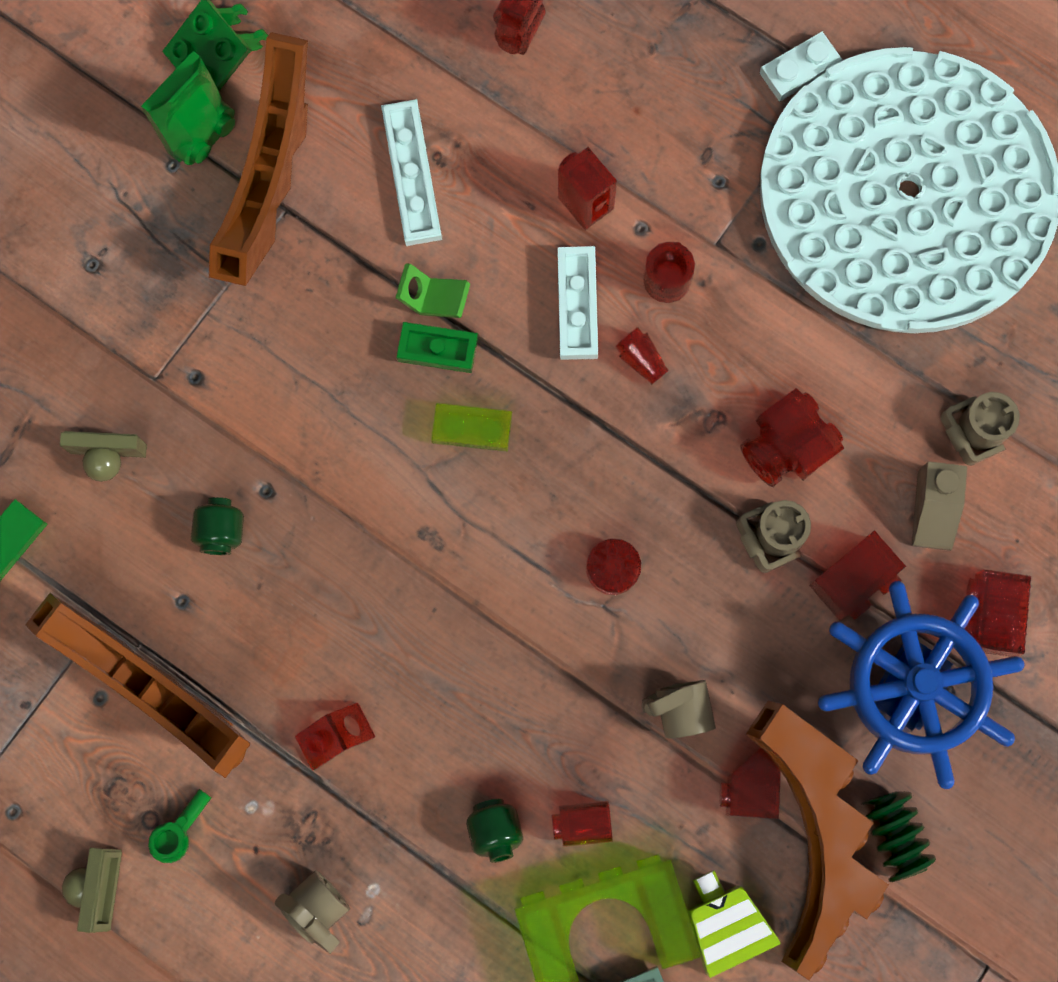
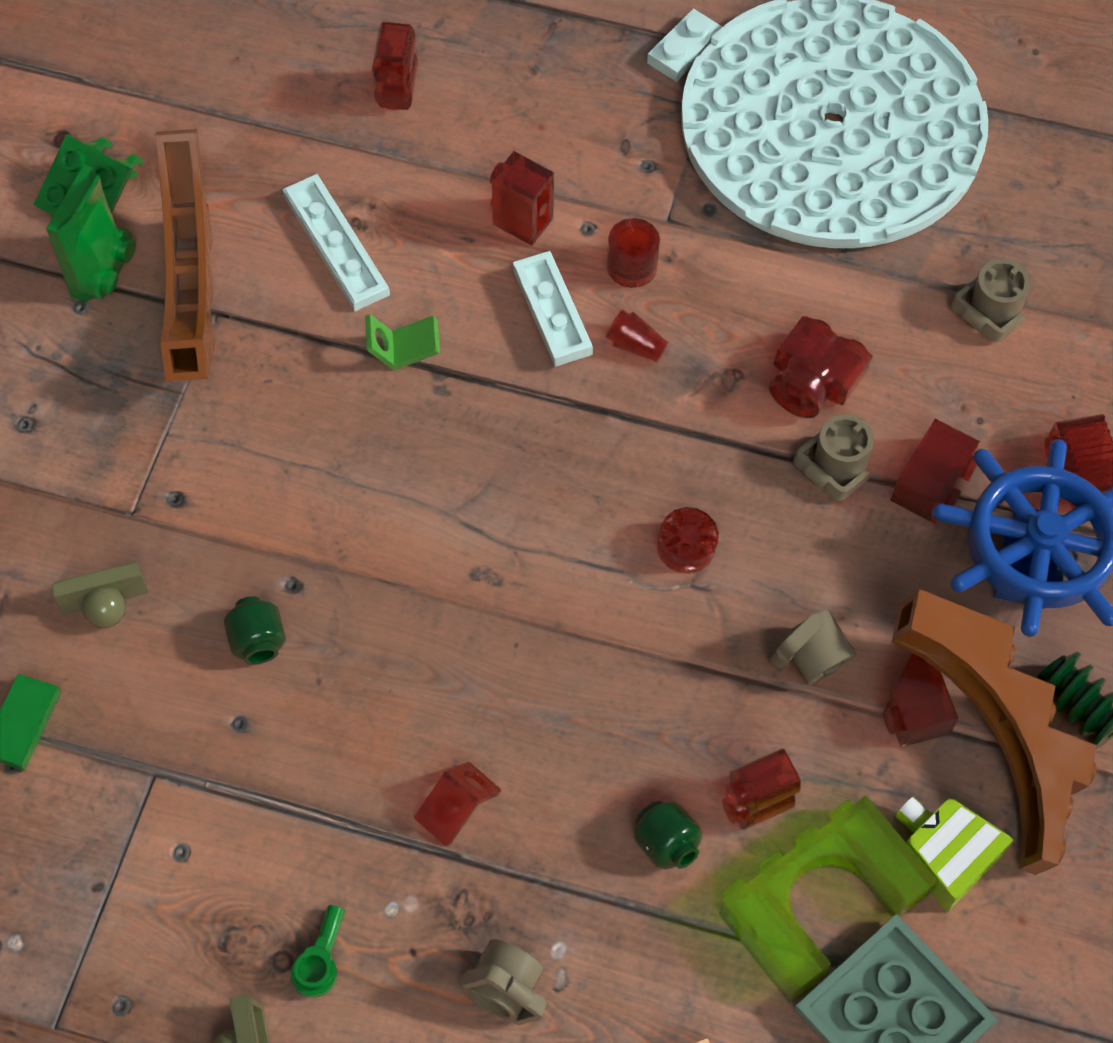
camera: 25 degrees left, 15 degrees down
(141, 683) = (240, 812): dark orange arch -> none
(437, 347) = (425, 390): green plate -> none
(471, 427) = (489, 453): clear neon green plate -> none
(938, 505) = (985, 381): dark tan slope -> none

